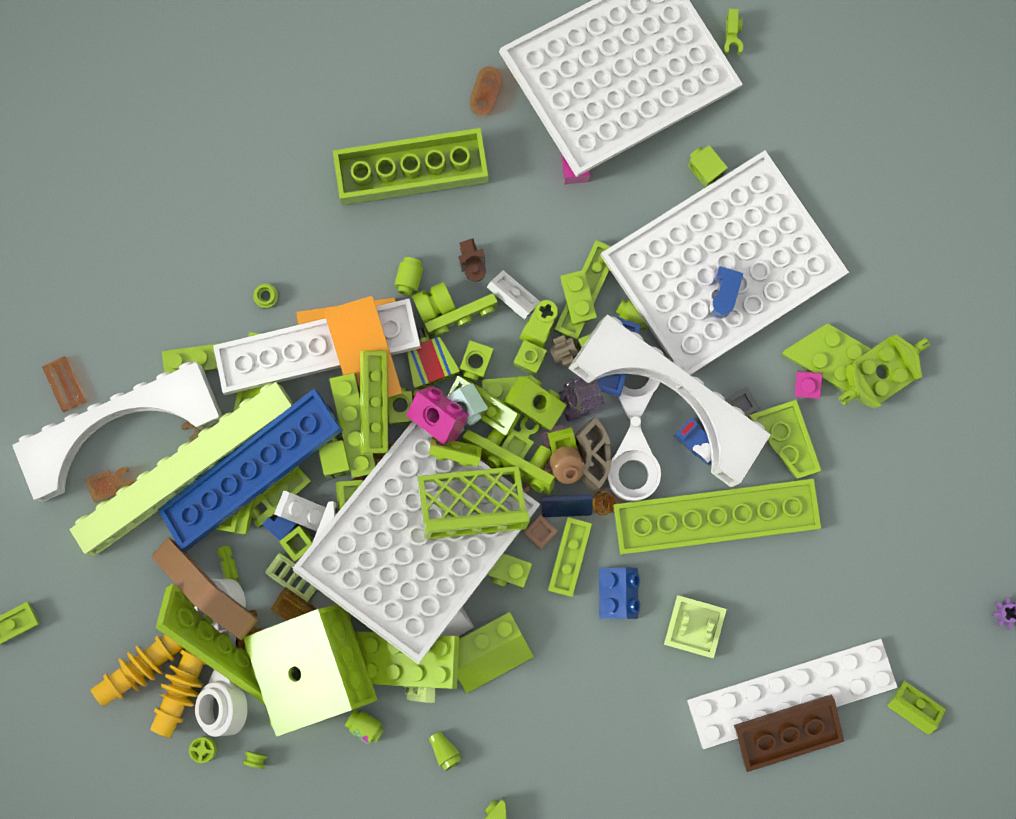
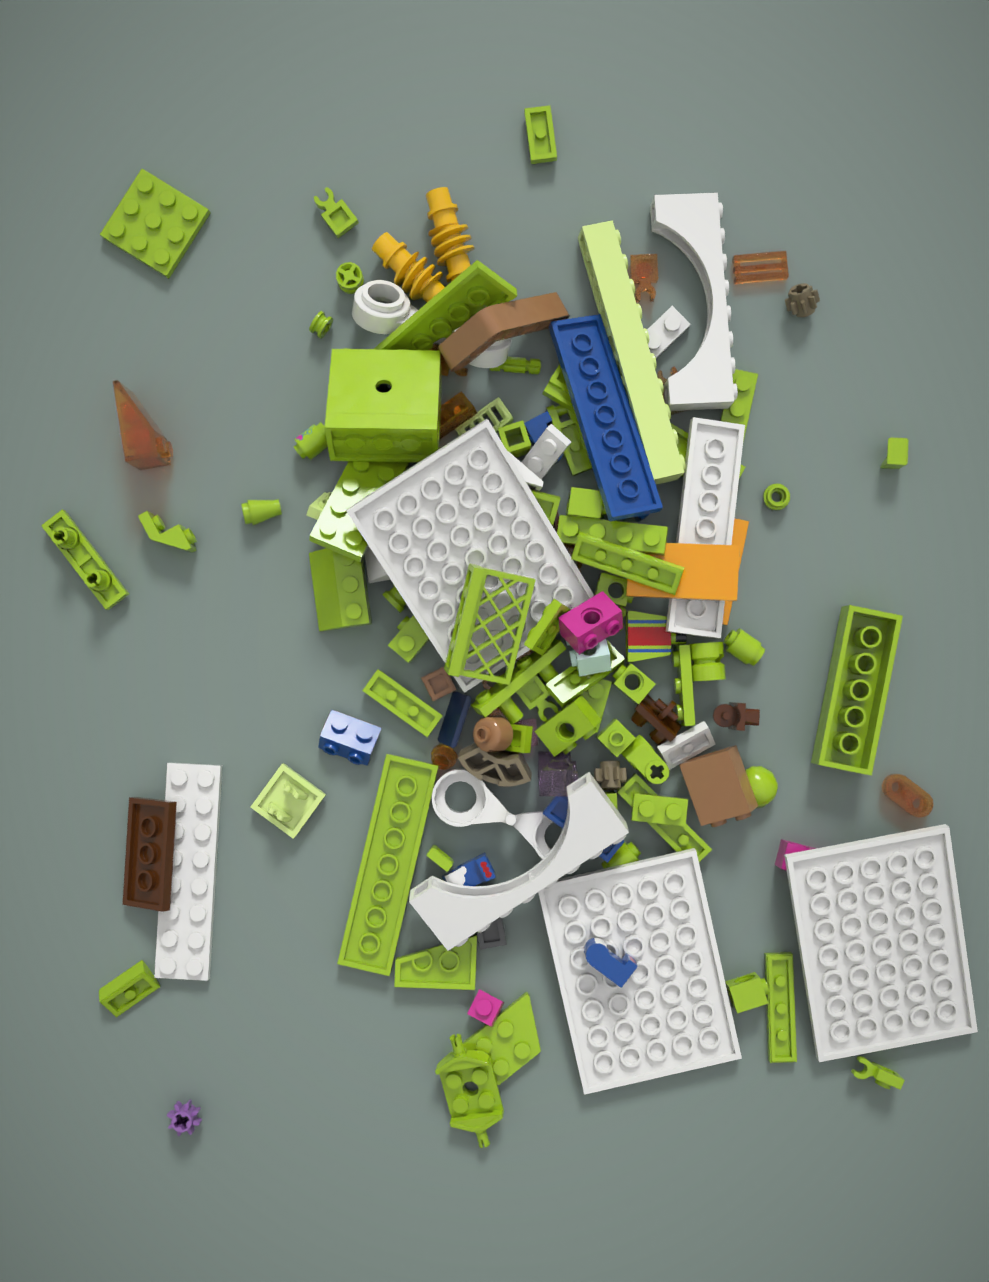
camera: 110 degrees right, 5 degrees up
(82, 336) = (802, 300): none -> dark tan gear
(149, 783) = (337, 215): none -> lime plate
(151, 446) = (666, 331): none -> white plate
(190, 205) = (896, 453): none -> lime slope
(478, 598) = (395, 598): none -> lime wheel
(497, 325) = (659, 716): none -> reddish brown hips
(527, 221) = (763, 784): none -> lime hair
(539, 253) = (719, 786): none -> medium nougat brick
(693, 472) = (440, 858): none -> lime tile
(709, 132) = (780, 1007): none -> lime tile

